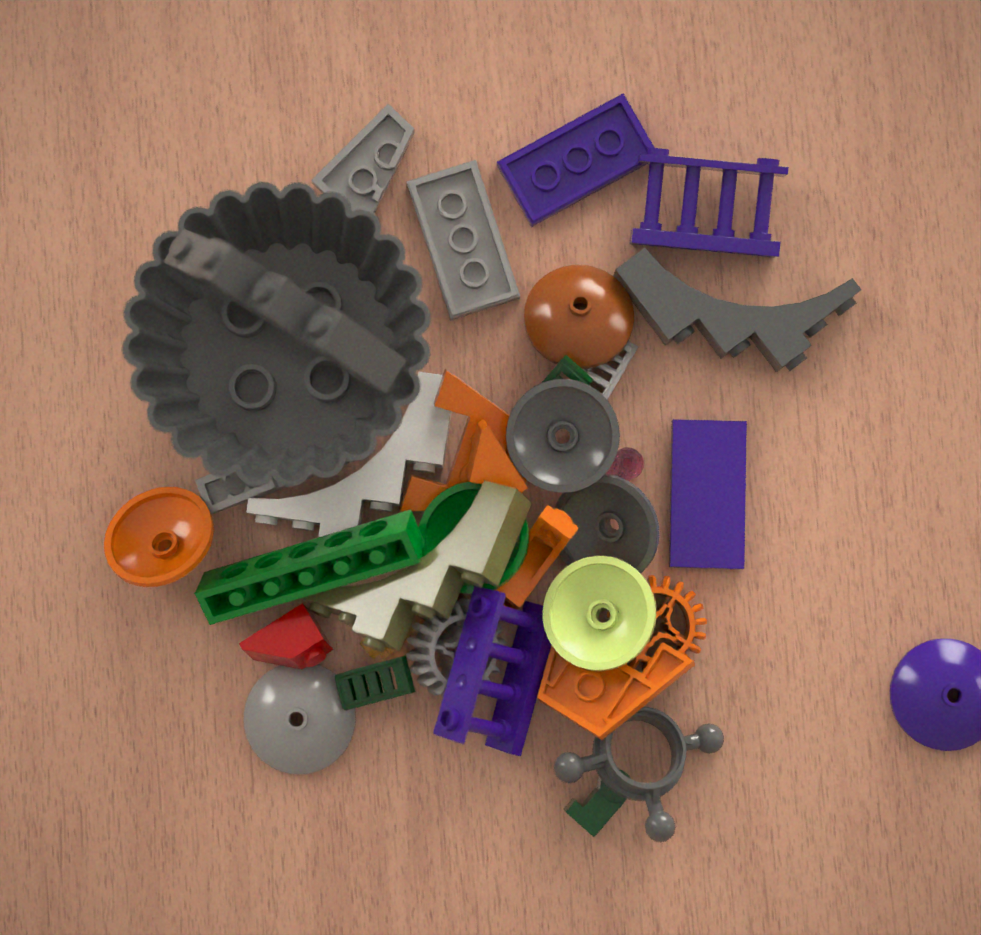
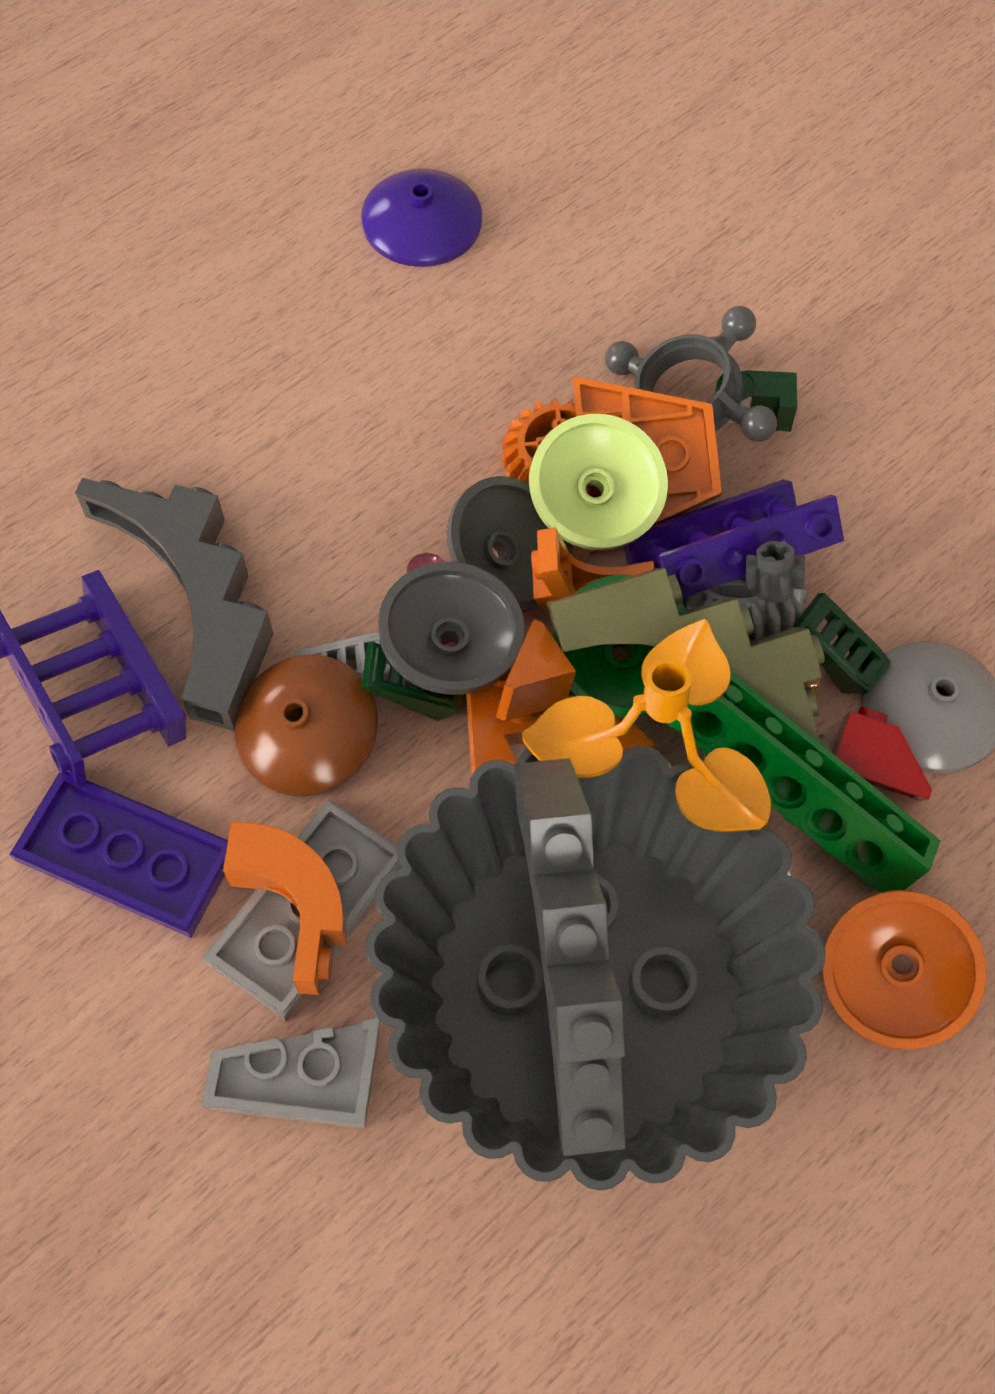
camera: 130 degrees left, 20 degrees down
(405, 420) = (681, 670): none -> light orange plant
(449, 657) = (775, 571): none -> dark grey gear
(468, 240) = (284, 864): none -> orange arch
(707, 494) = (392, 497): dark purple tile -> none

